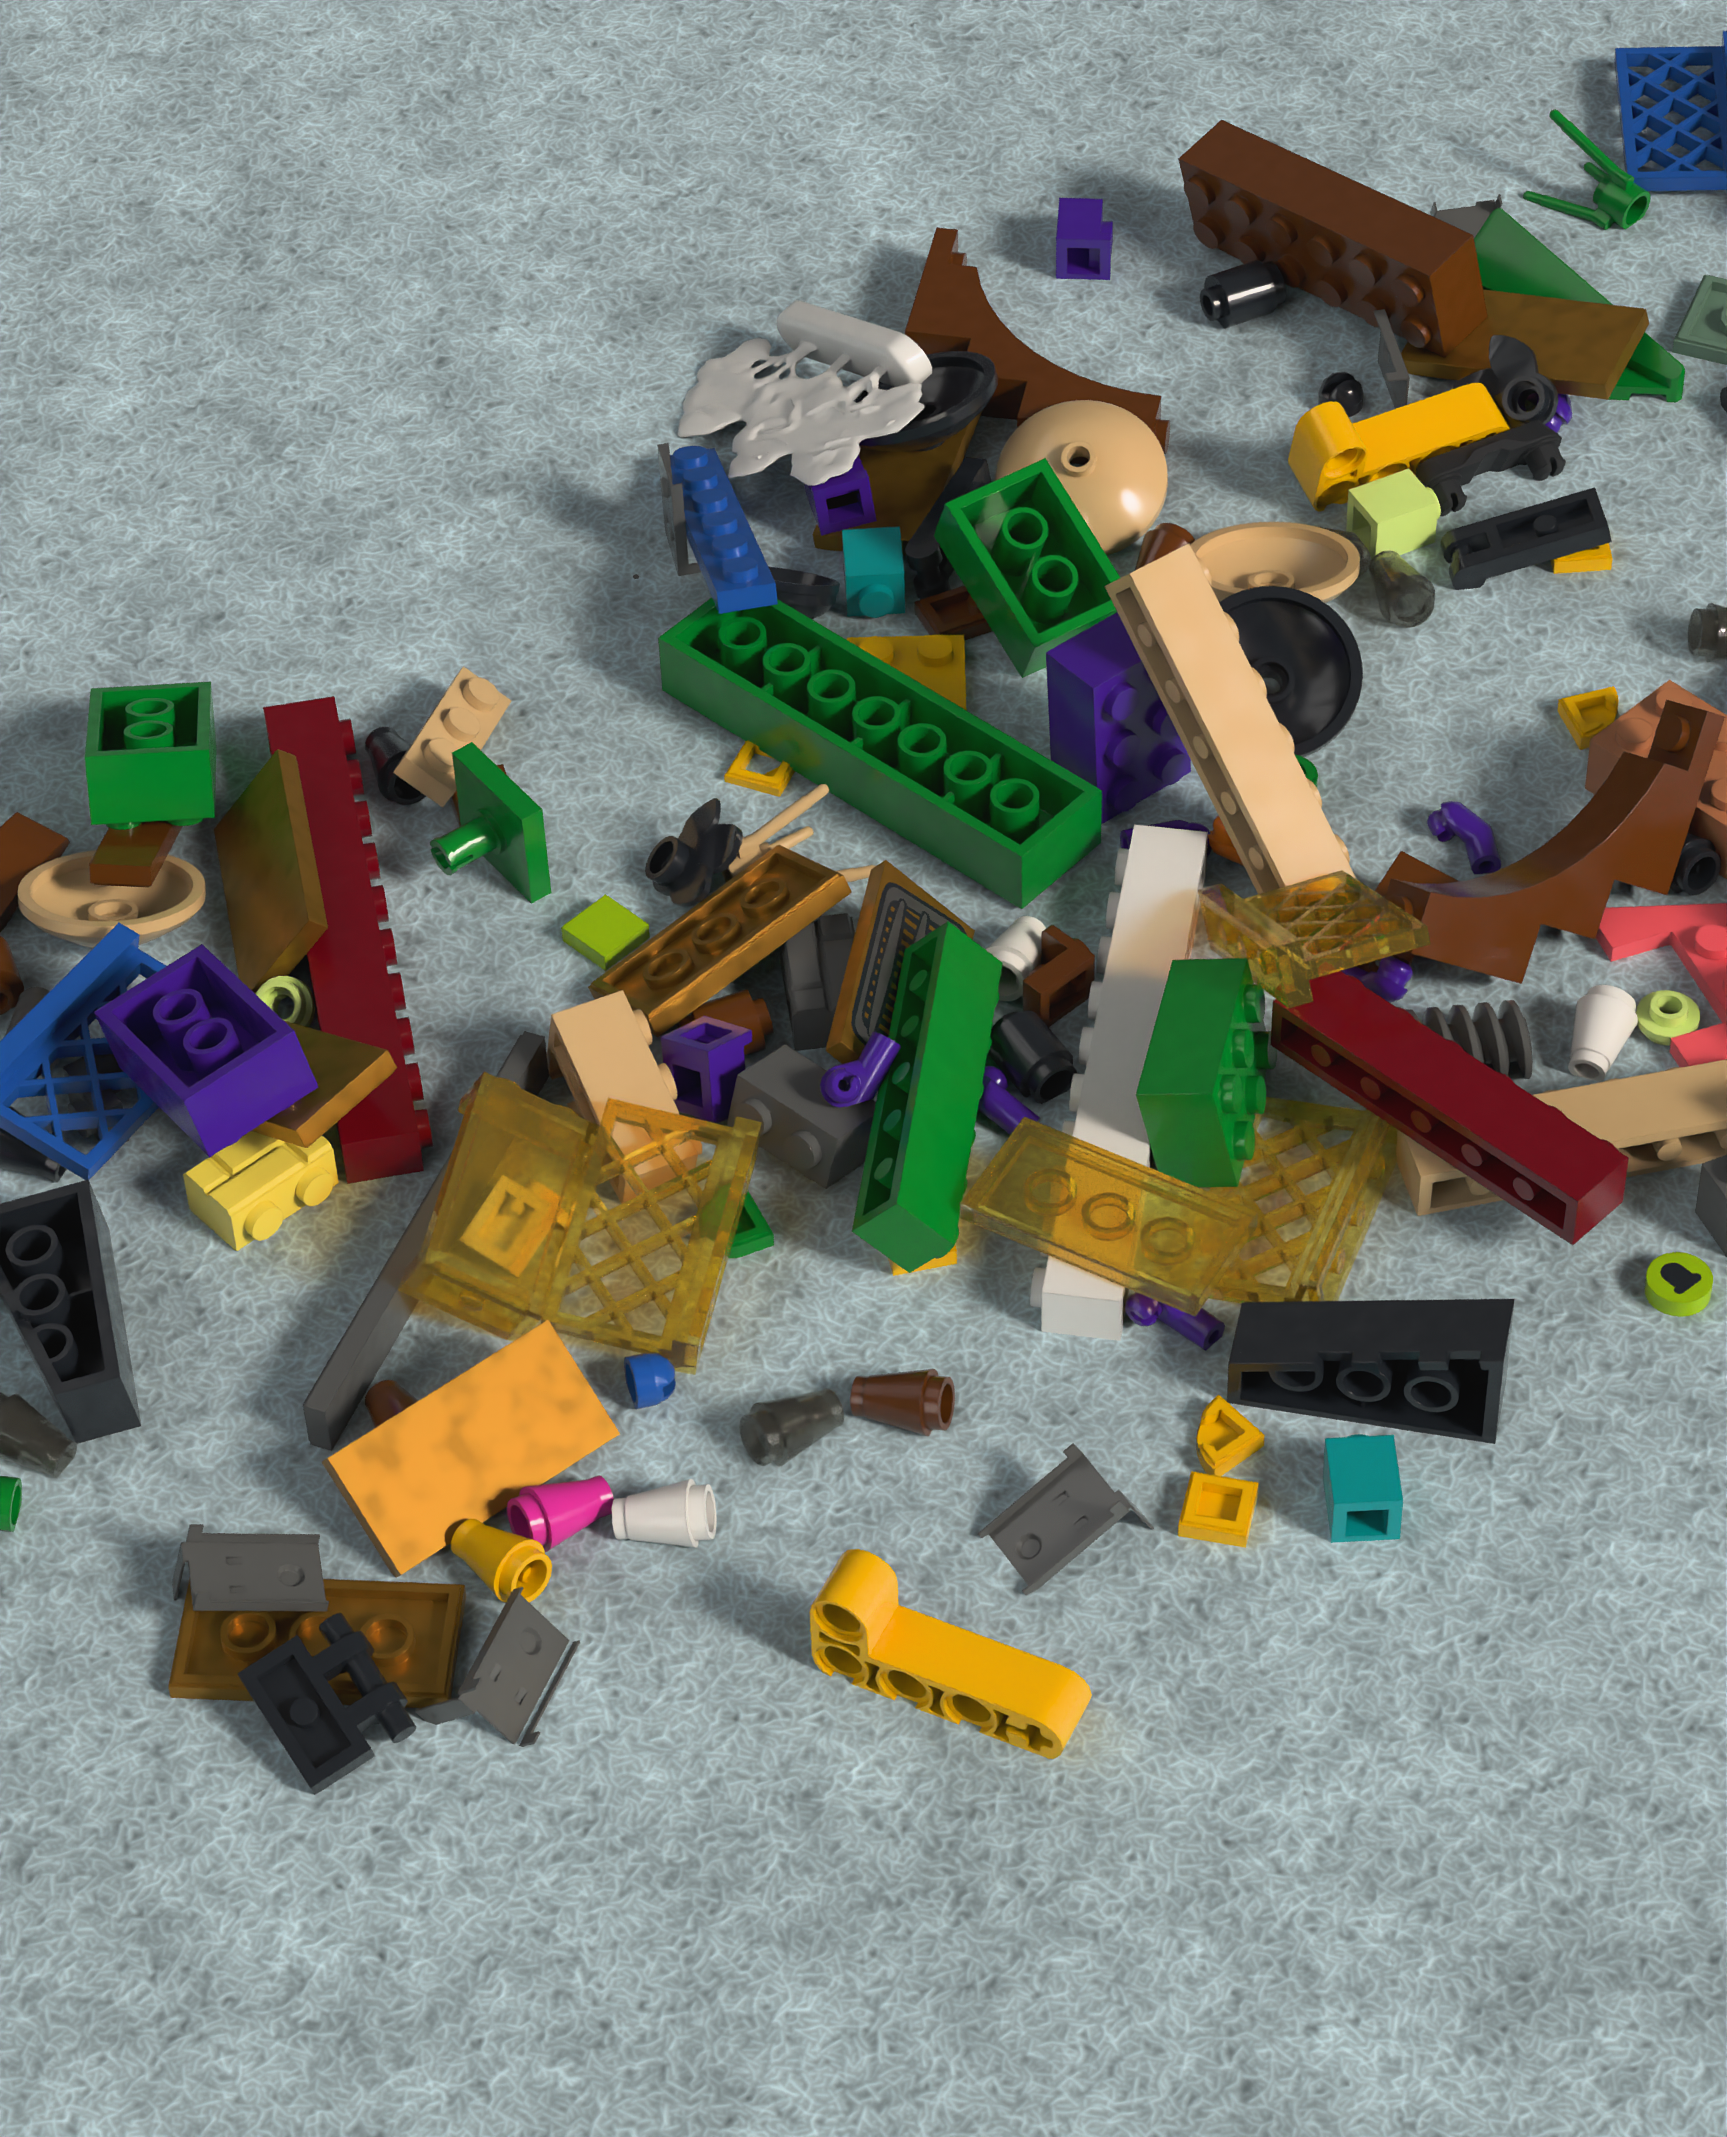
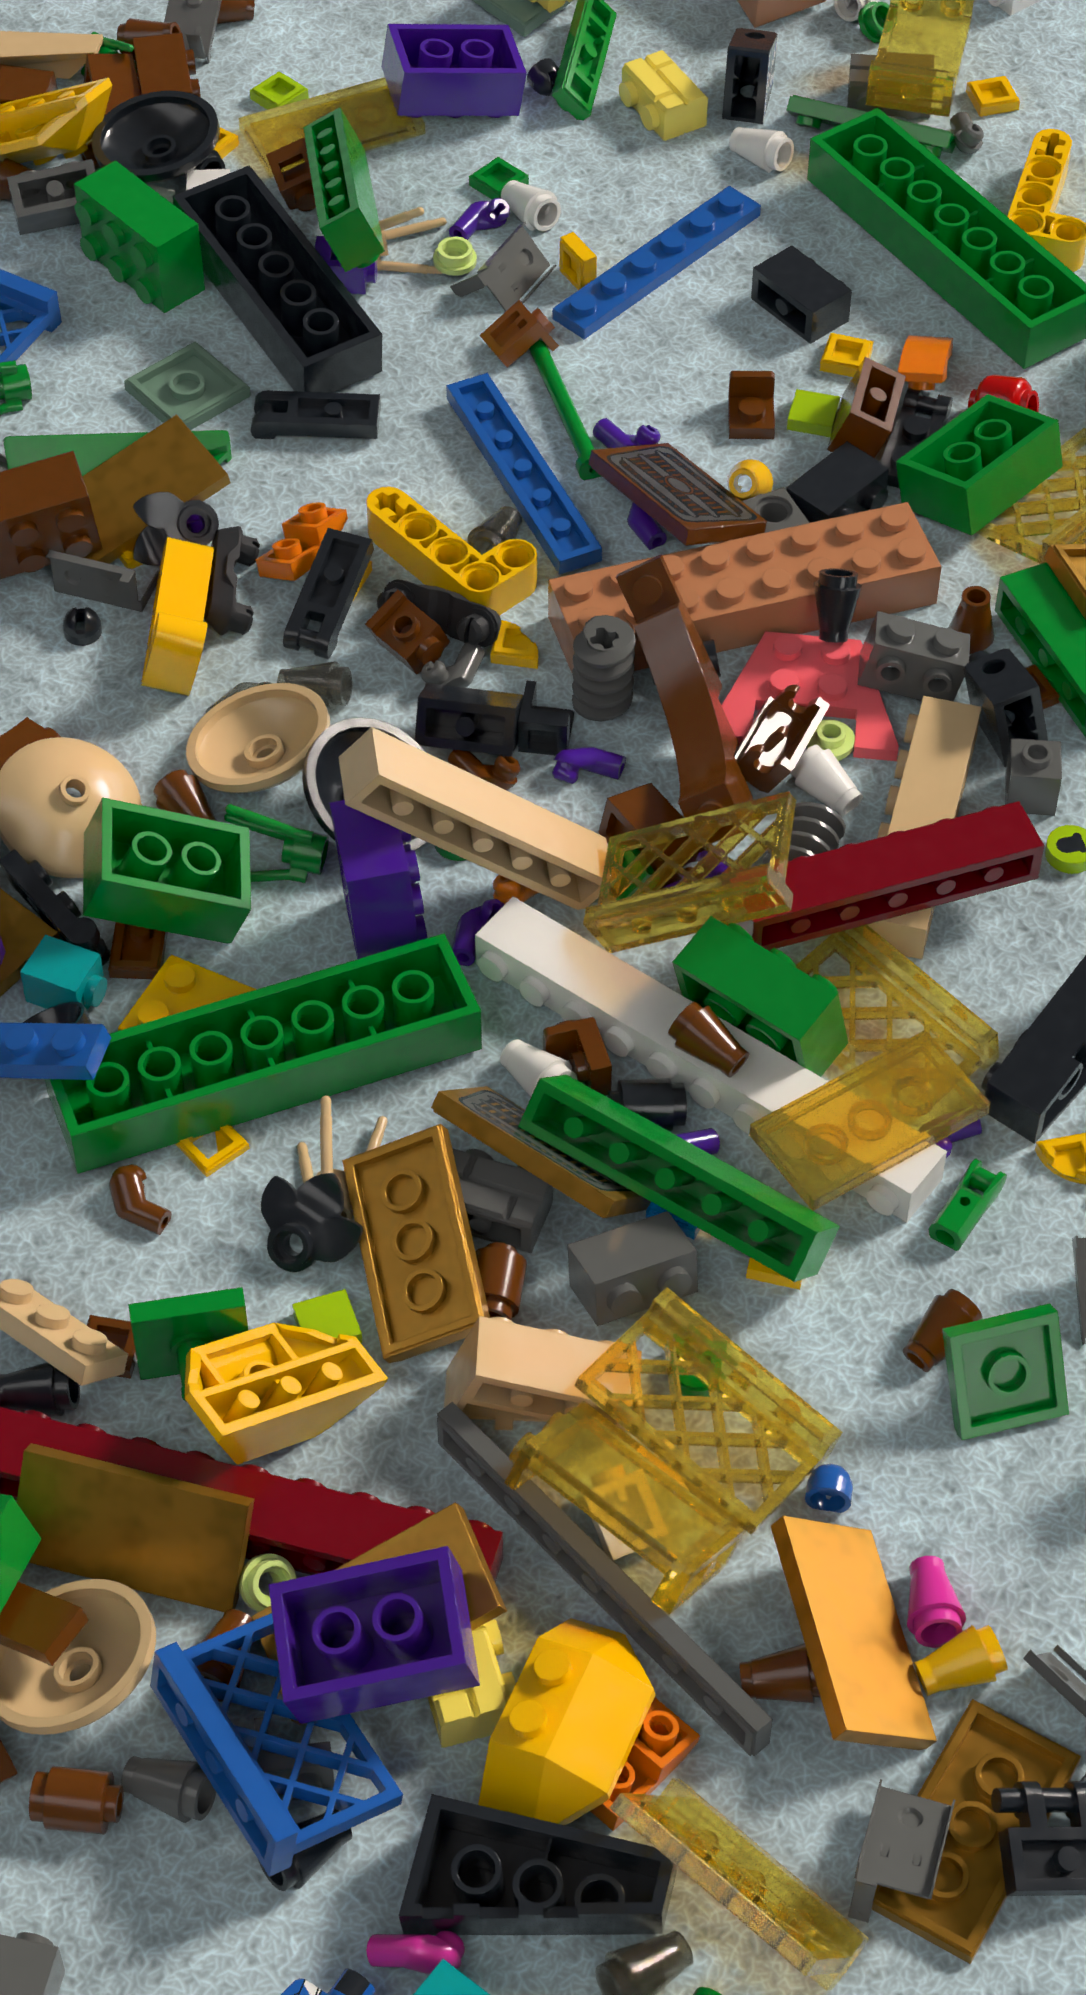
camera: 65 degrees left, 5 degrees up
(154, 1473) = (745, 1880): none -> clear yellow fence
(248, 1265) = (567, 1725): none -> yellow wedge
(260, 1355) = (656, 1752): none -> orange slope
(467, 897) = (277, 1386): none -> yellow wedge
(647, 741) = (131, 1203): none -> reddish brown arm
(667, 1515) = (975, 1529): white cone -> none
(705, 1065) = (547, 1300): dark purple brick -> none
(789, 1425) = (928, 1415): clear smoke cone -> none
(860, 1078) = (648, 1216): dark purple arm -> none
(863, 1453) = (1006, 1371): none -> green tile
(1101, 1367) = (965, 1206): none -> green bar
(1113, 1037) = (706, 1038): none -> reddish brown cone
(1388, 763) = (501, 774): none -> reddish brown arm
(1393, 513) = (243, 651): yellowish green brick -> none
(1434, 710) = (468, 719): none -> black brick
(1490, 774) = (542, 728): none -> black panel
(1509, 689) = (459, 674): none -> dark grey arm
(1522, 619) = (407, 632): none -> reddish brown brick
(1576, 765) = (603, 668): none -> dark grey piece
(1581, 653) = (450, 610): none -> black piece
(1619, 489) = (302, 540): none -> orange slope
(1626, 962) = (778, 738): none -> reddish brown hinge
(1646, 633) = (444, 559): none -> yellow beam

